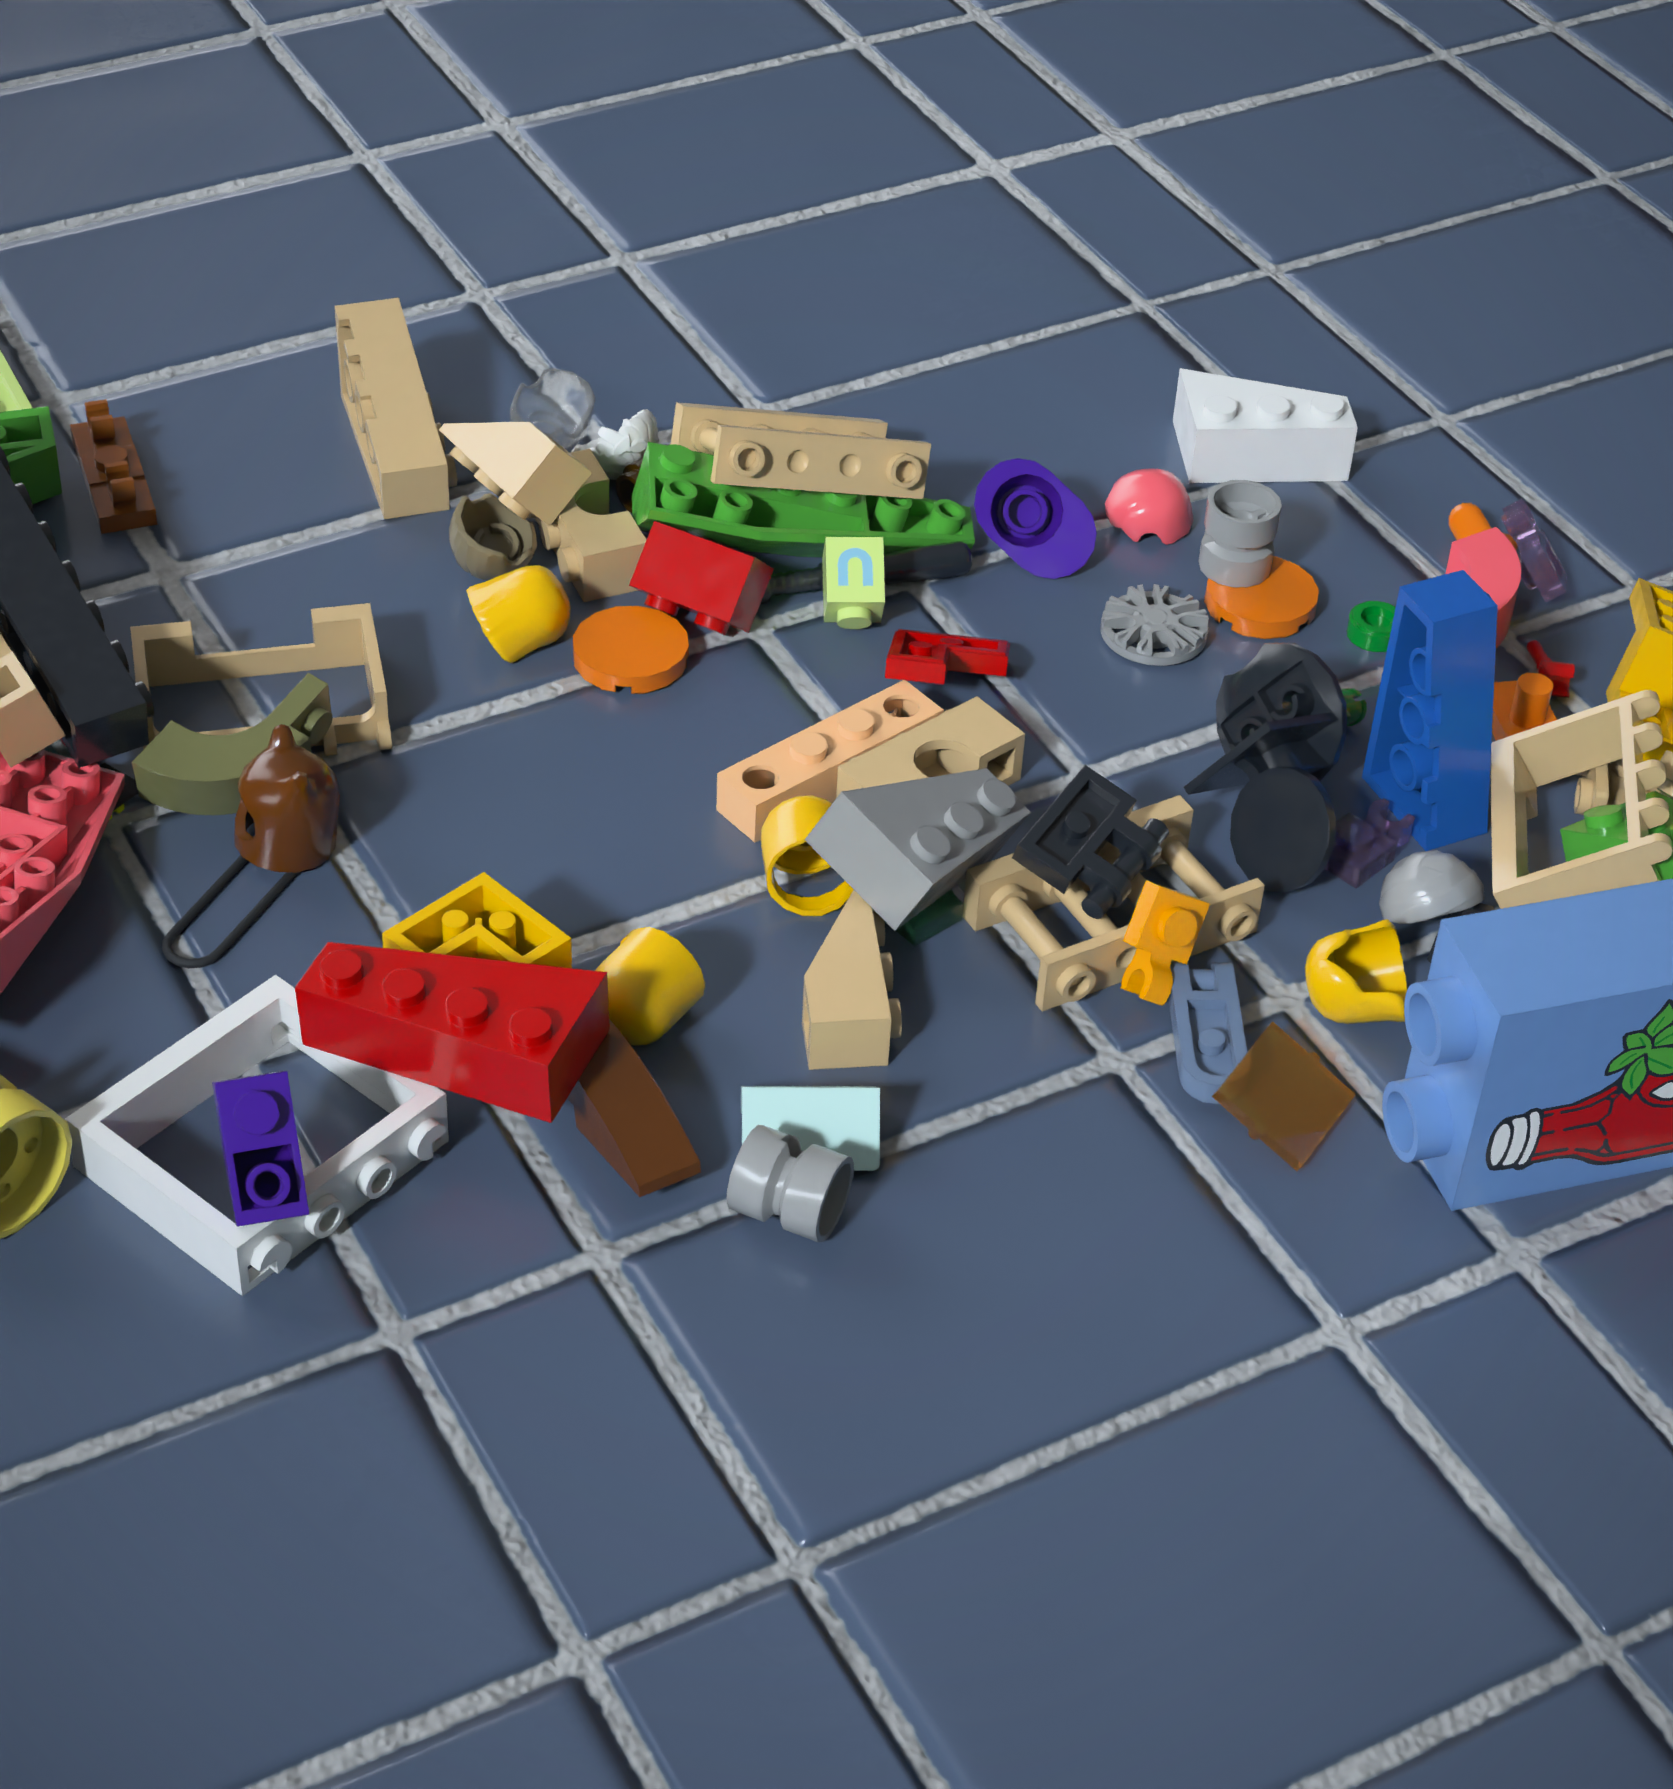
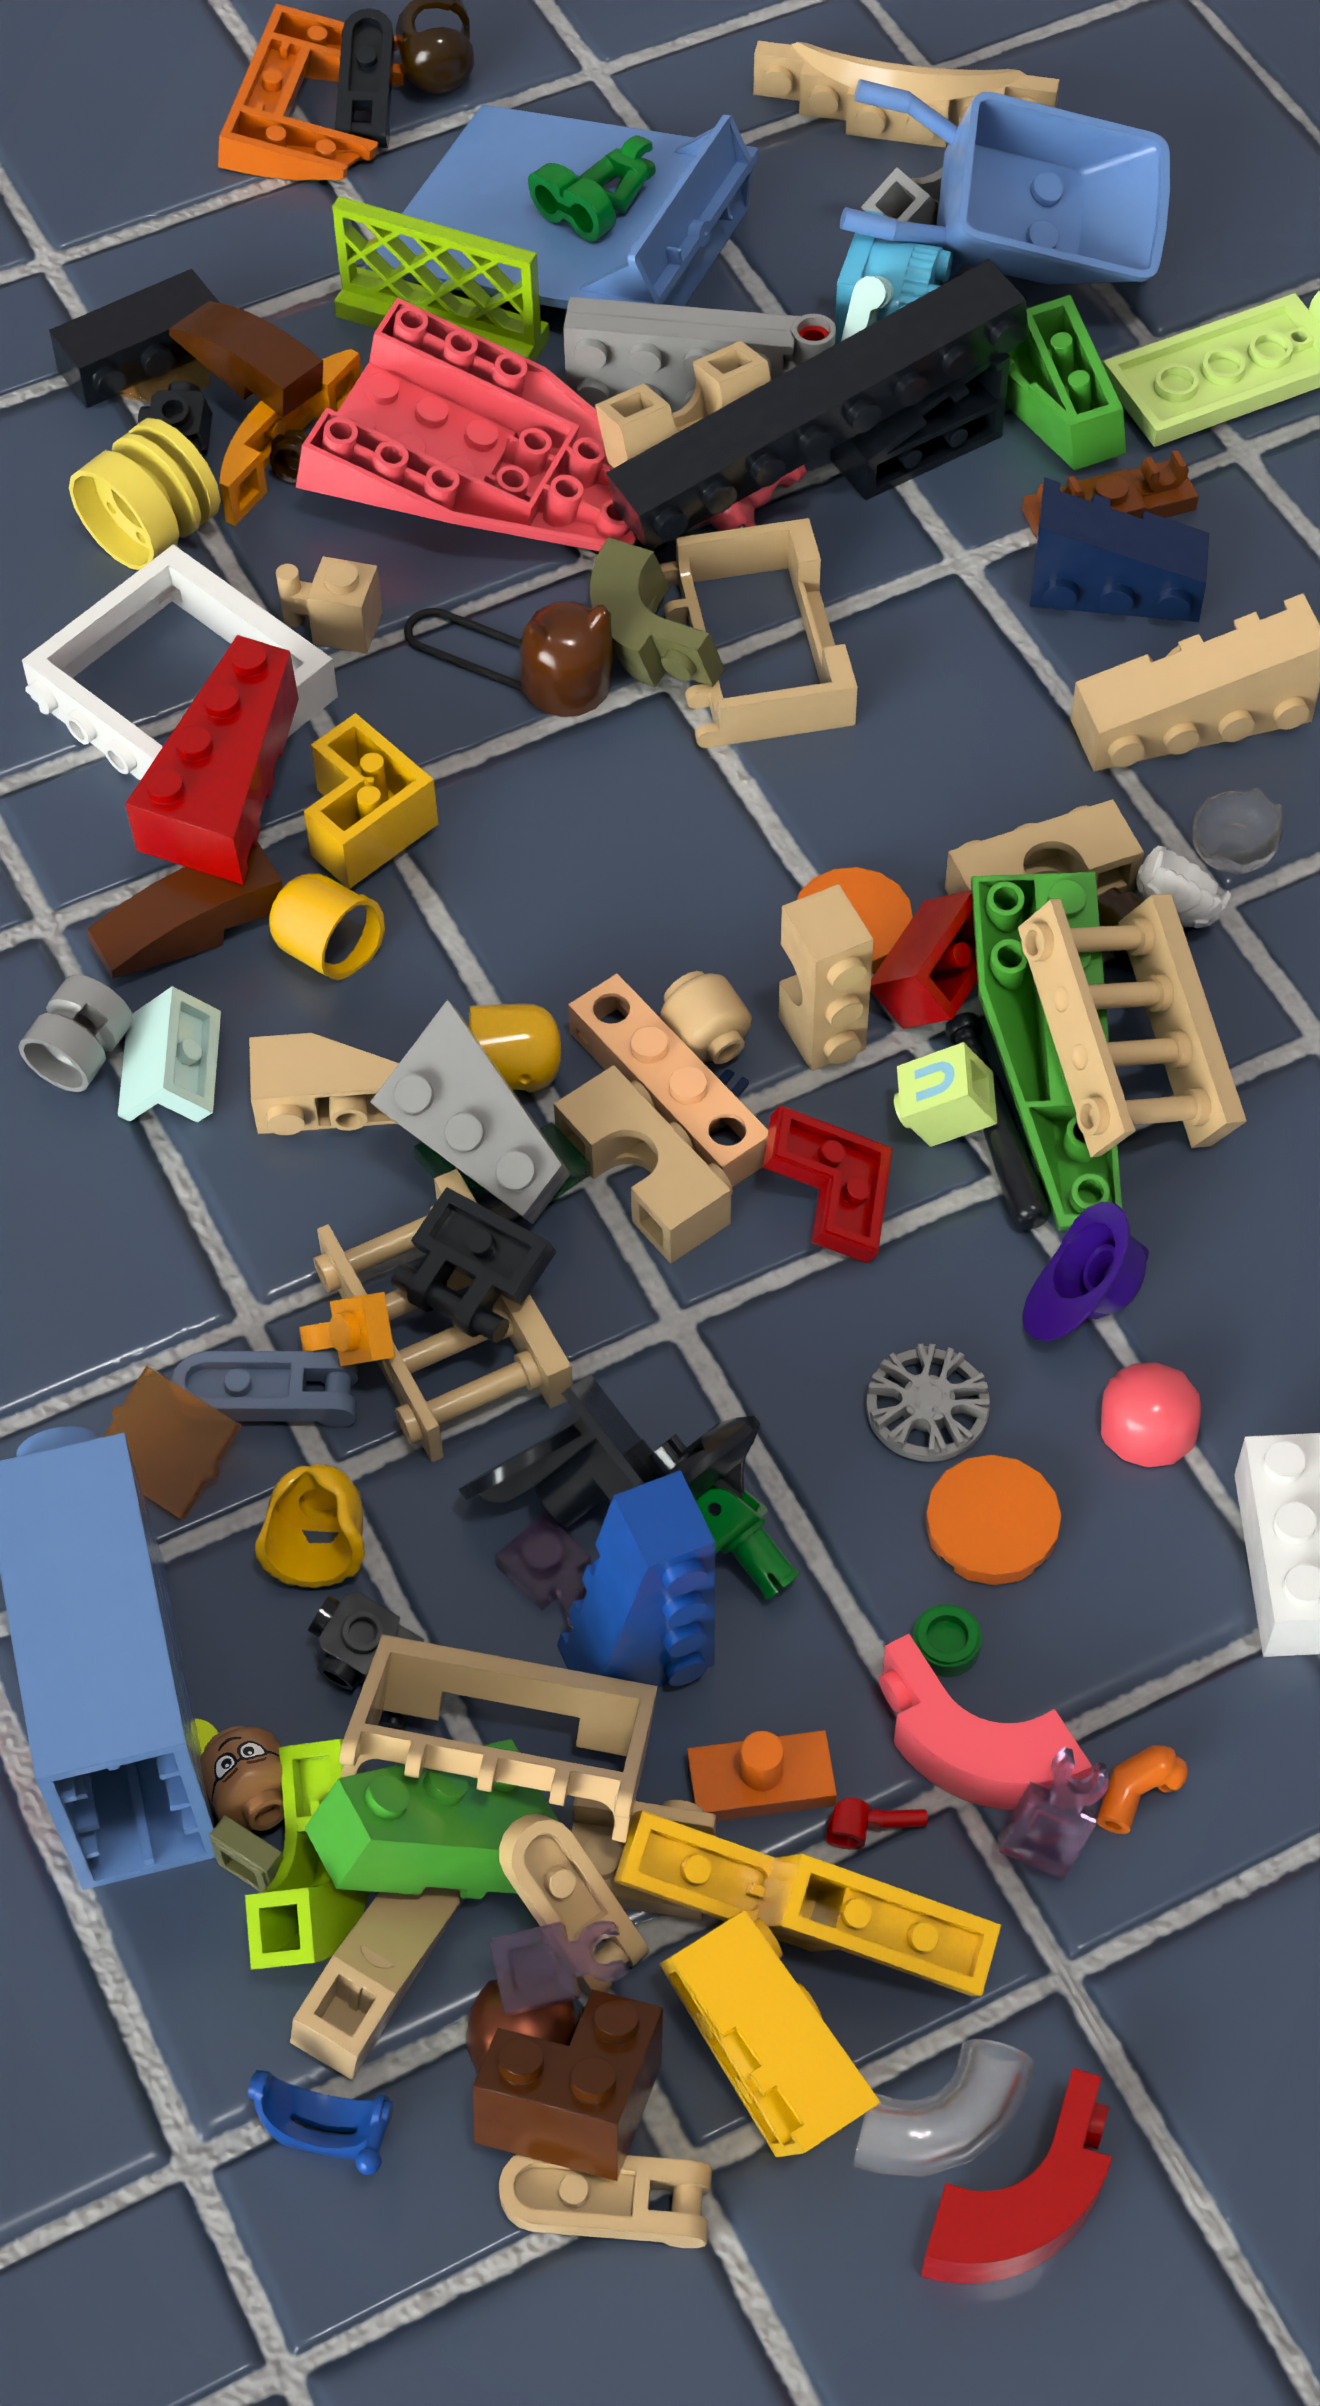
camera: 95 degrees right, 15 degrees up
(168, 991) = (340, 602): none -> tan brick
(215, 459) = (1116, 561): none -> dark blue wedge
(260, 1148) = (103, 645): dark purple slope -> none
(490, 537) = (991, 781): dark tan hair -> none
(518, 465) = (1079, 777): tan slope -> none
(521, 610) = (884, 816): yellow hair -> none
(759, 575) = (830, 995): none -> tan arch
(759, 720) = (707, 1016): none -> tan head
(1239, 533) = (1039, 1465): light grey wheel -> none
(1428, 887) = (433, 1602): light grey piece -> none

